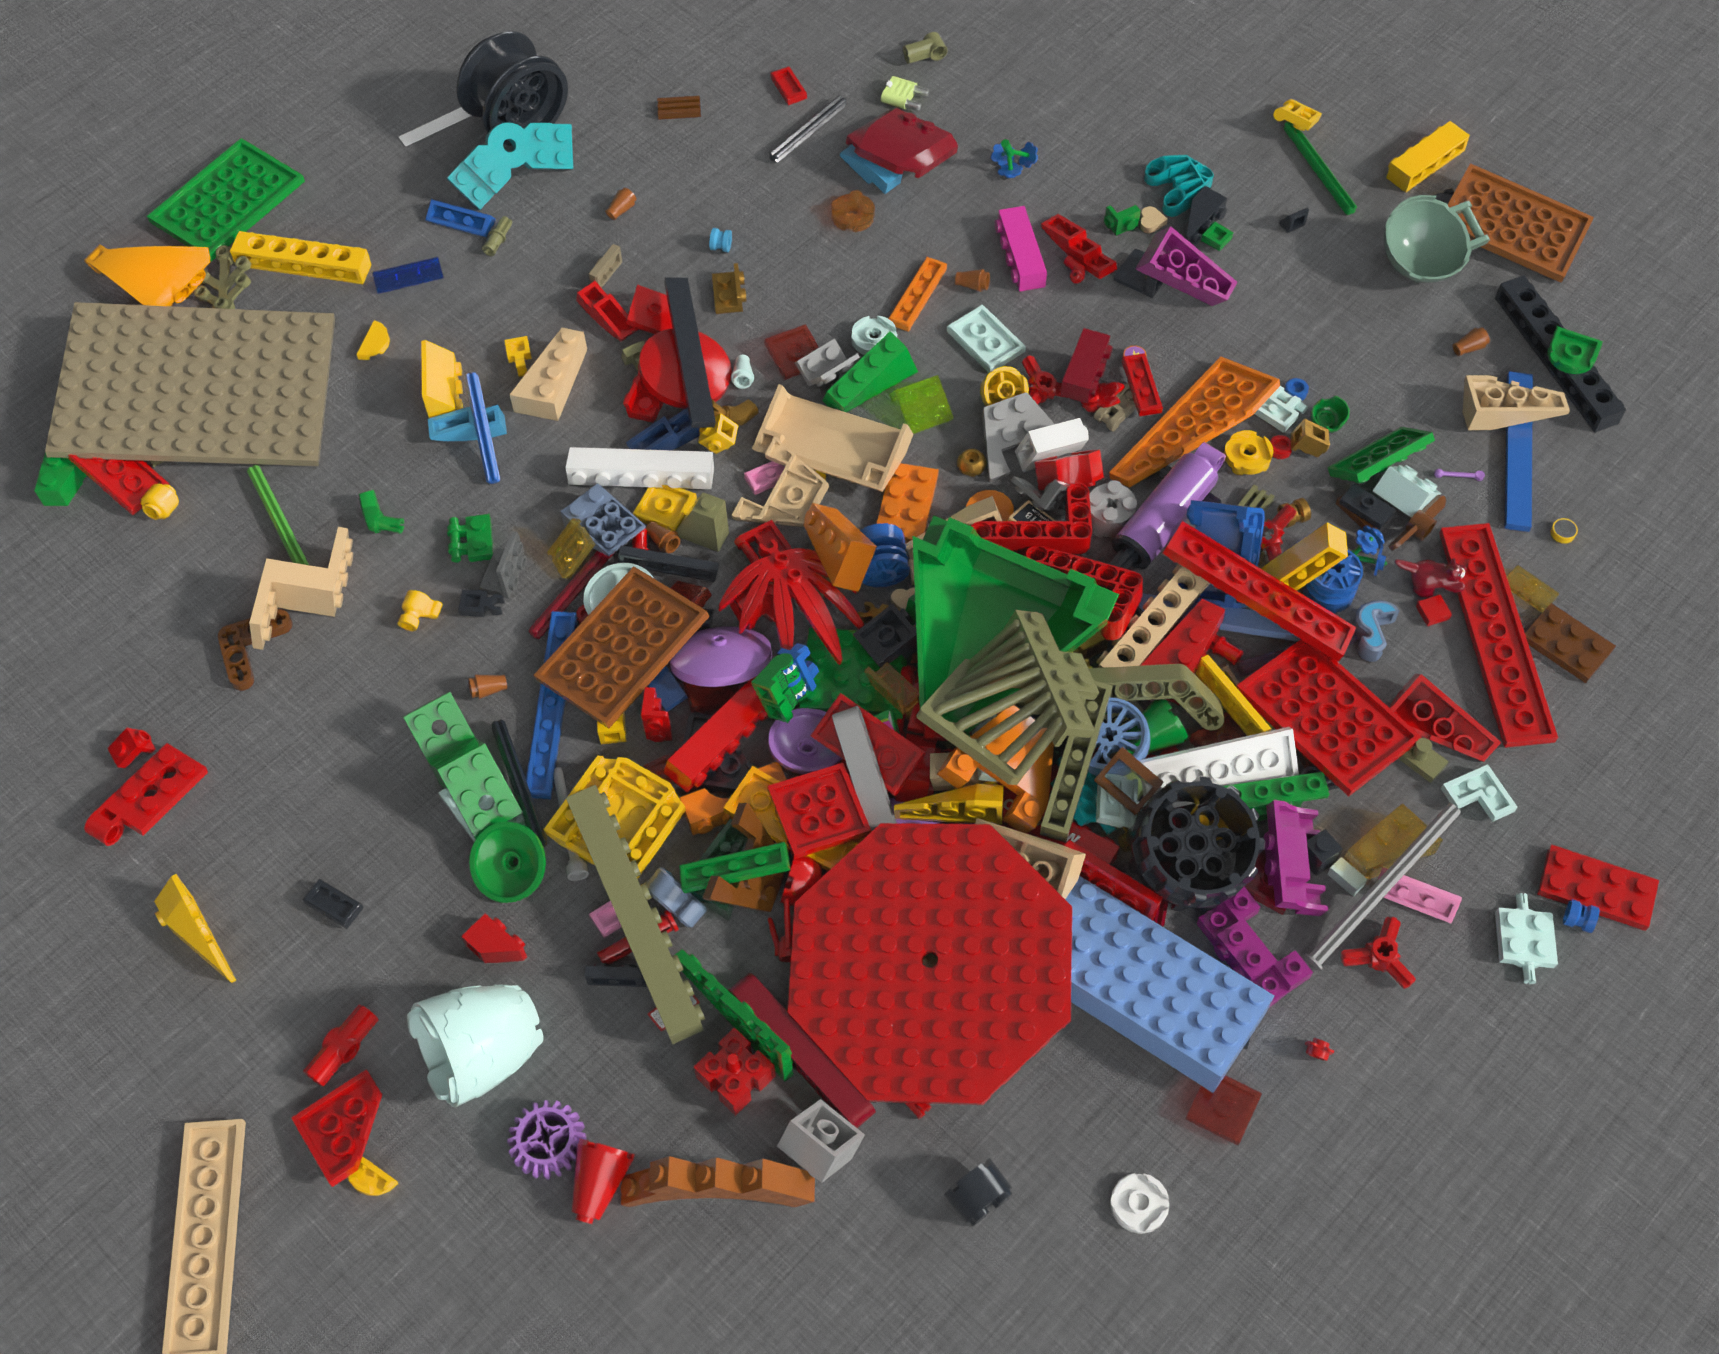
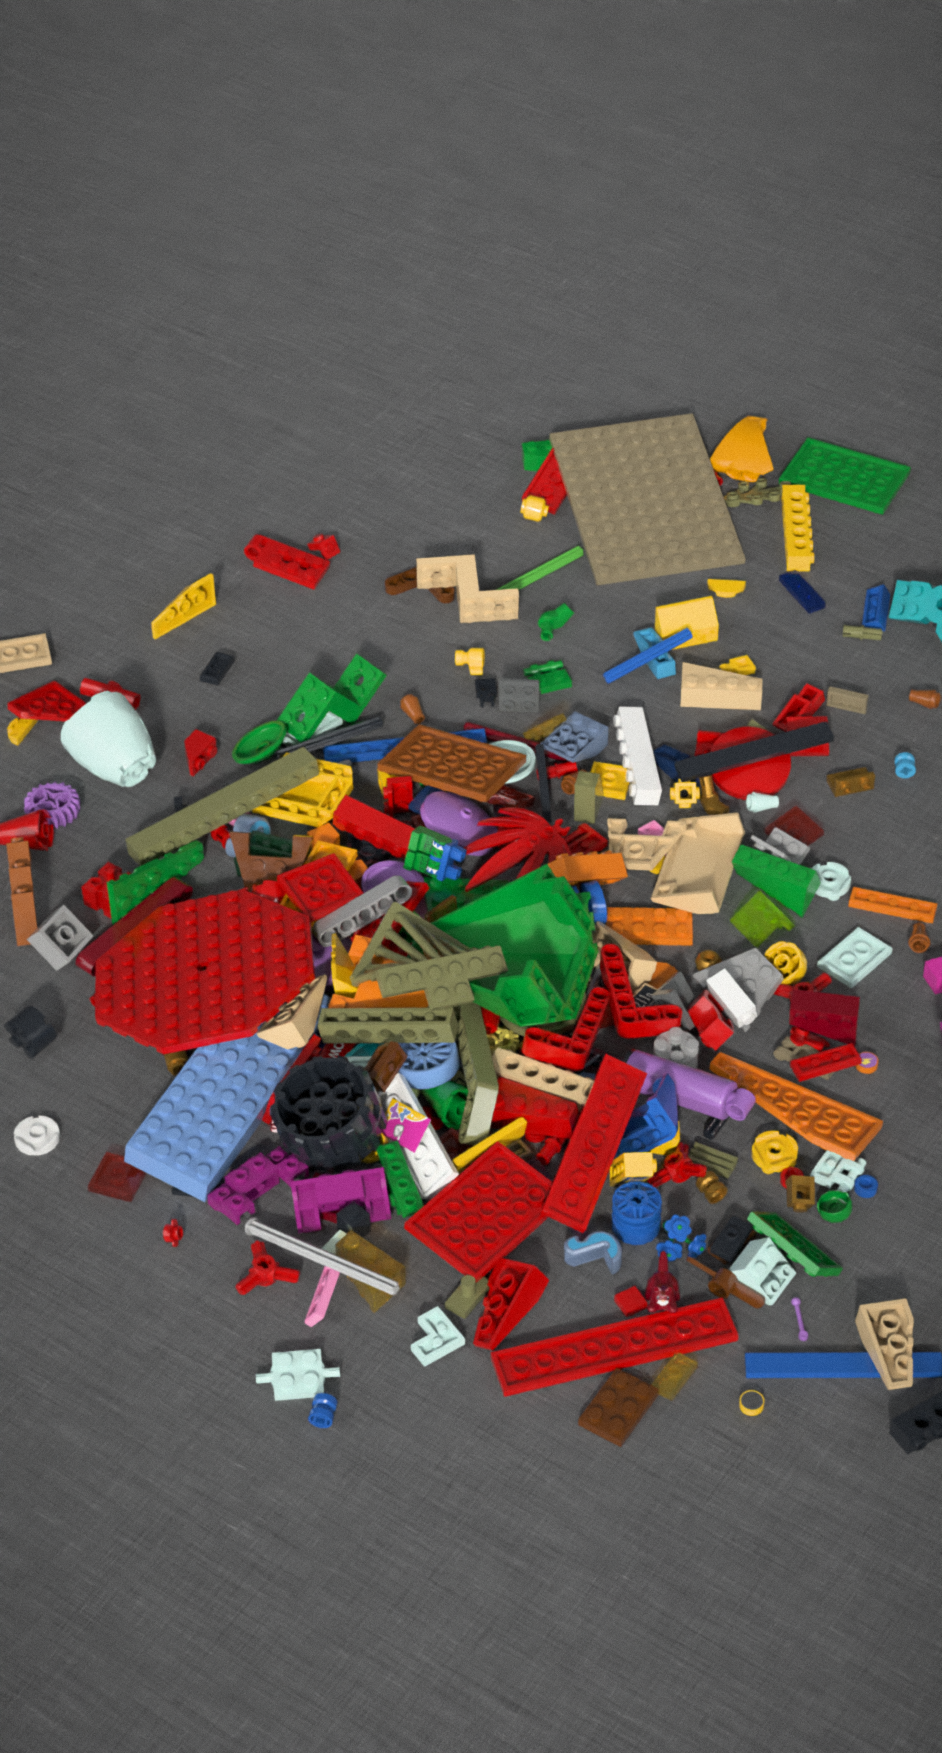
camera: 80 degrees right, 15 degrees down
(735, 866) = (264, 850): green tile -> none
(1215, 762) = (405, 1125): none -> sticker
(1615, 890) = (357, 1430): red plate -> none

